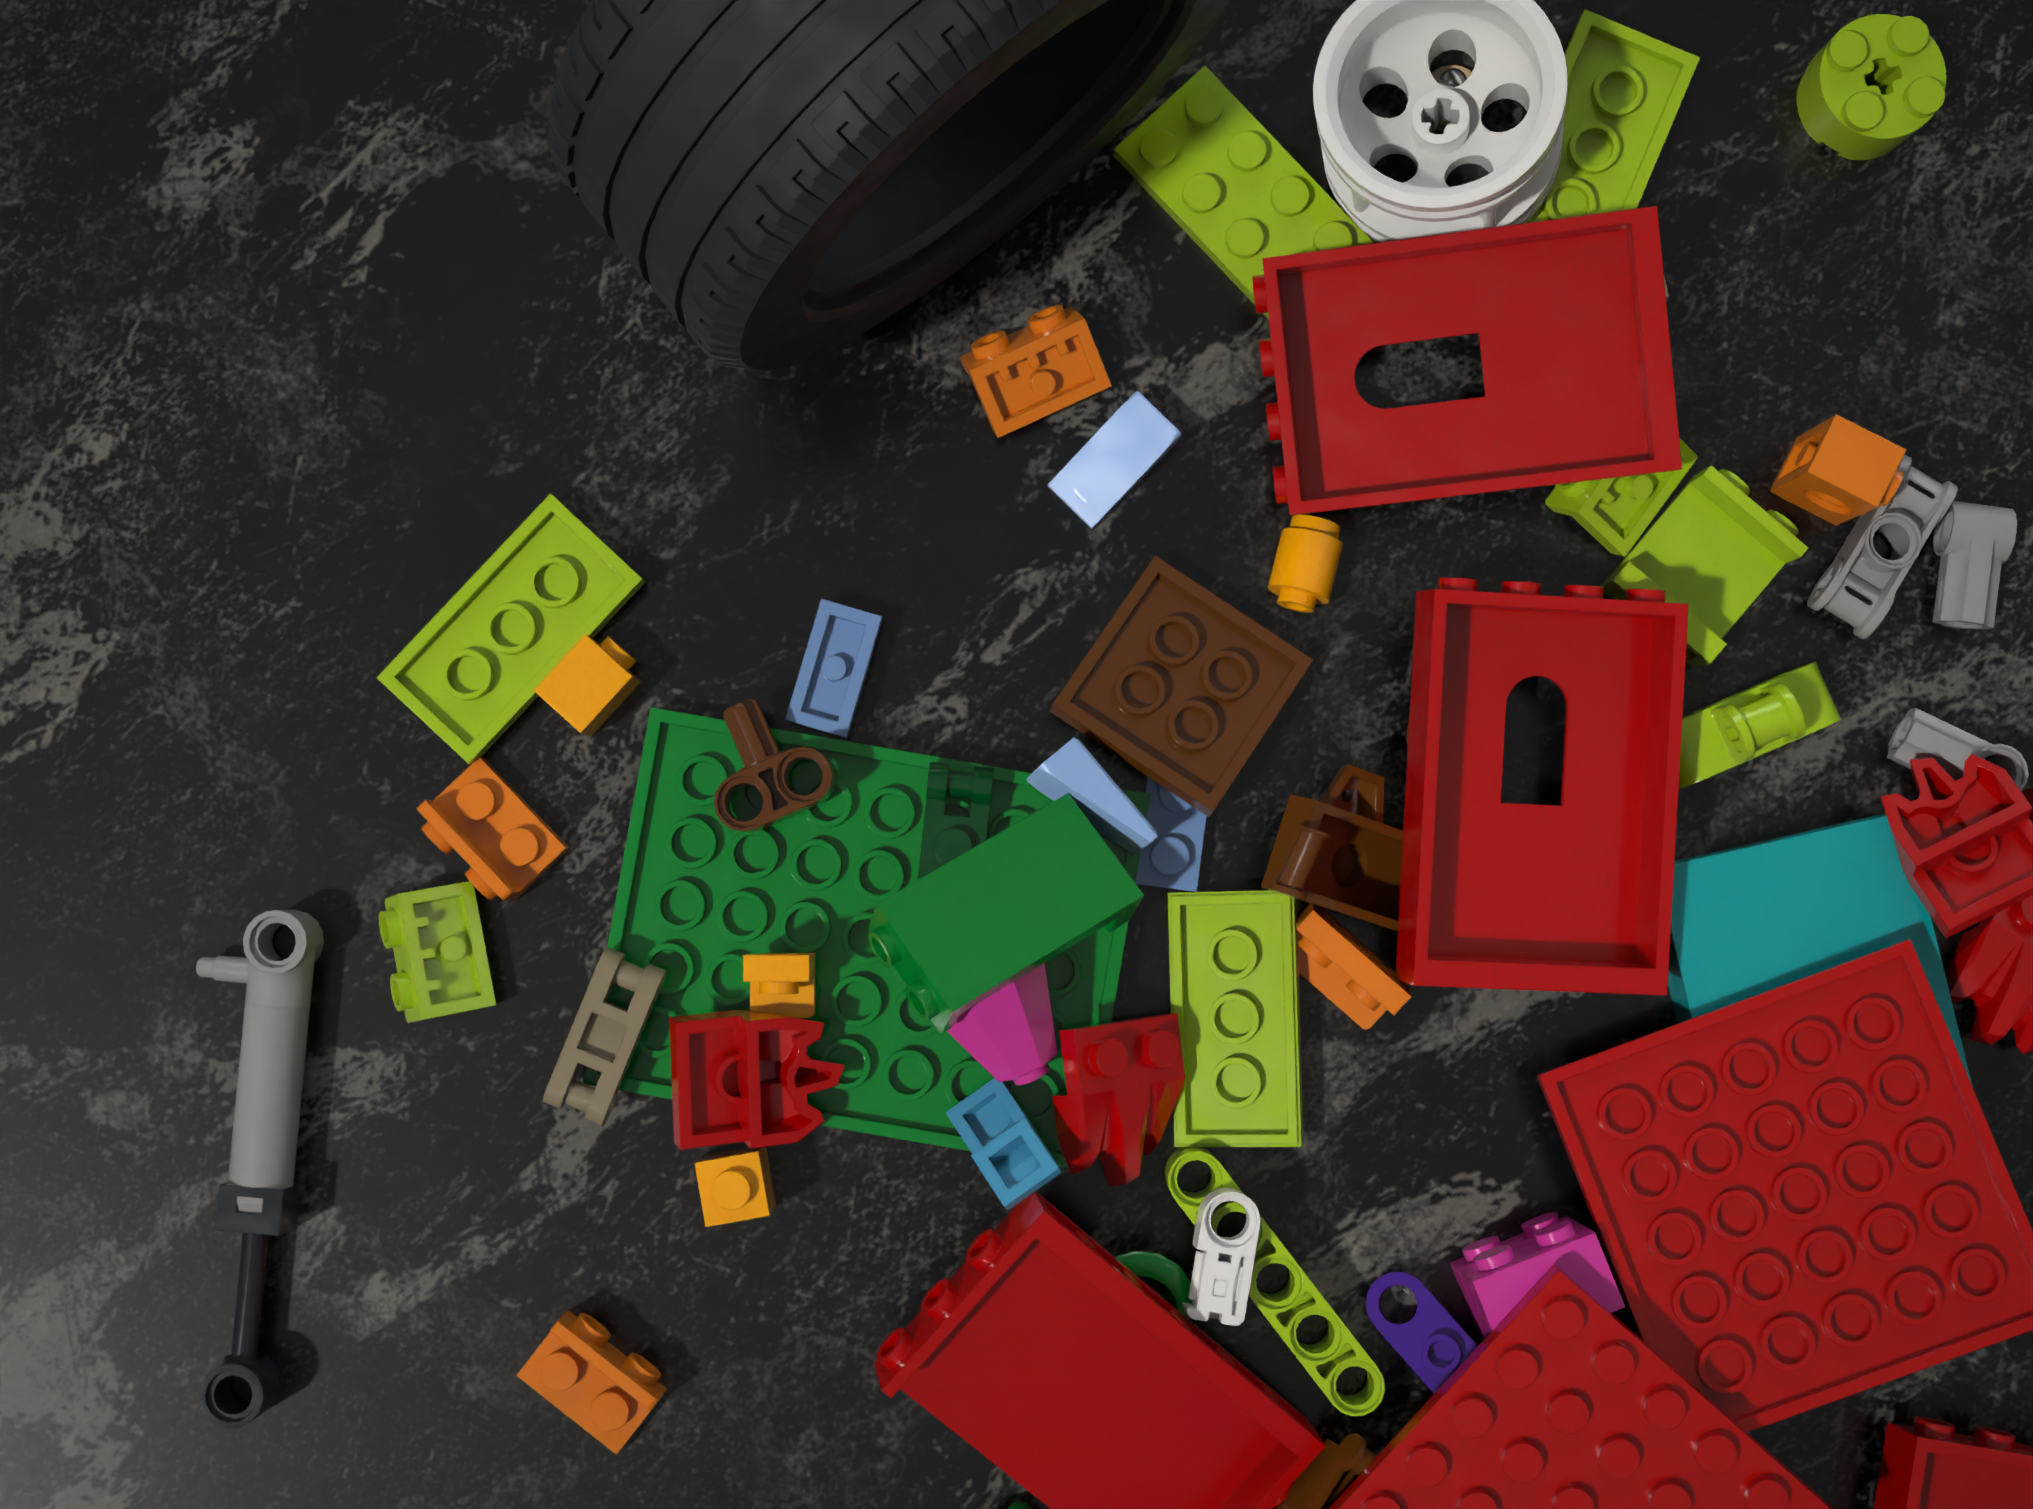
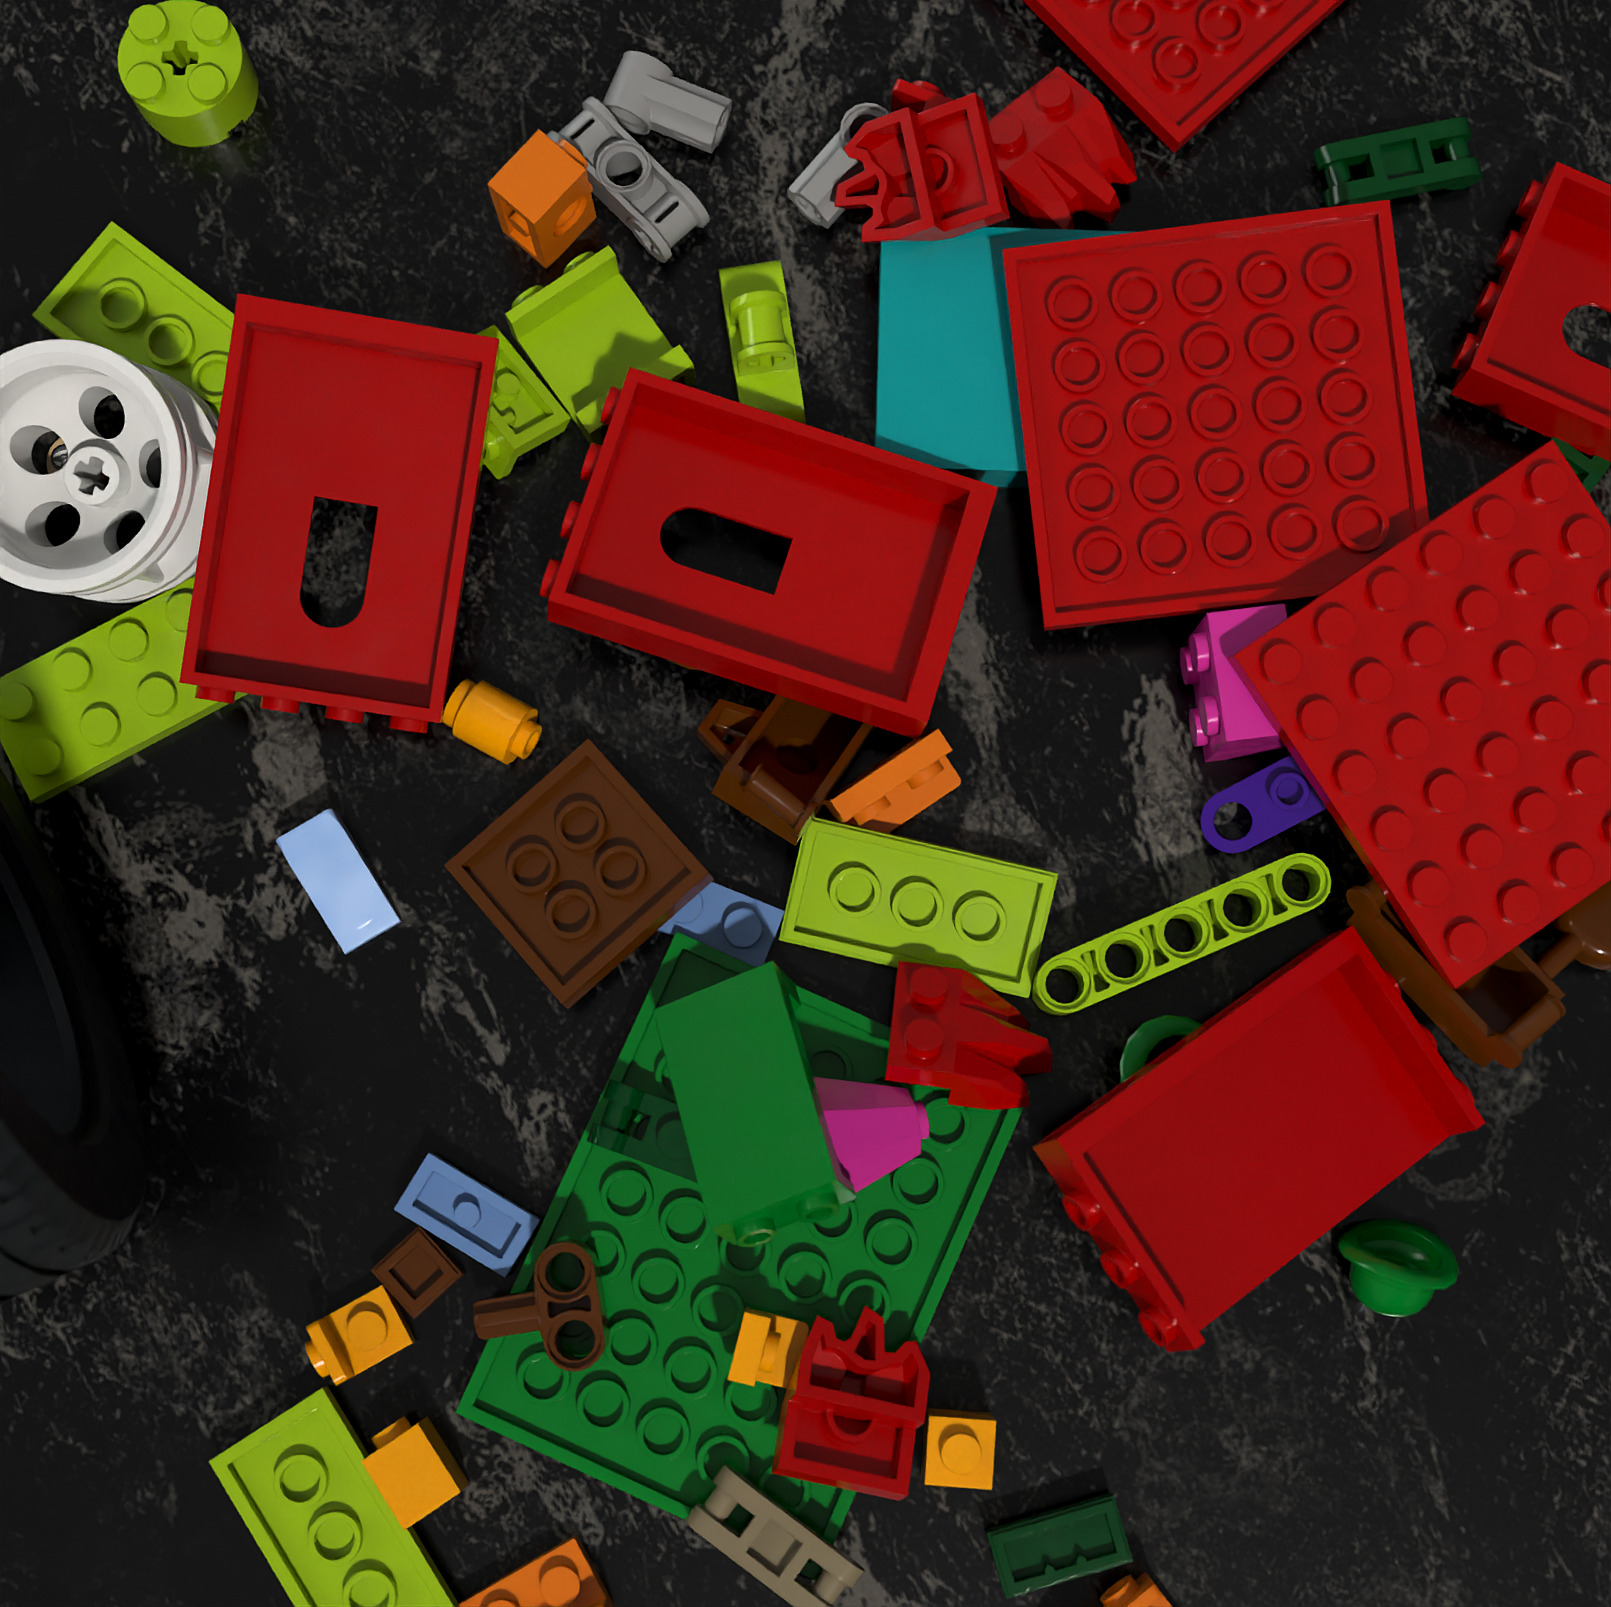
camera: 75 degrees left, 5 degrees down
(671, 1301) = (1059, 1545): none -> dark green plate
(697, 598) = (358, 1336): none -> light orange bracket
(770, 636) = (418, 1271): none -> reddish brown tile
(1003, 1143) = (981, 1164): dark azure slope -> none
(1035, 368) = (225, 935): orange bracket -> none
(1095, 792) = (660, 983): light blue slope -> none
(1224, 1264) = (1153, 977): white piece -> none

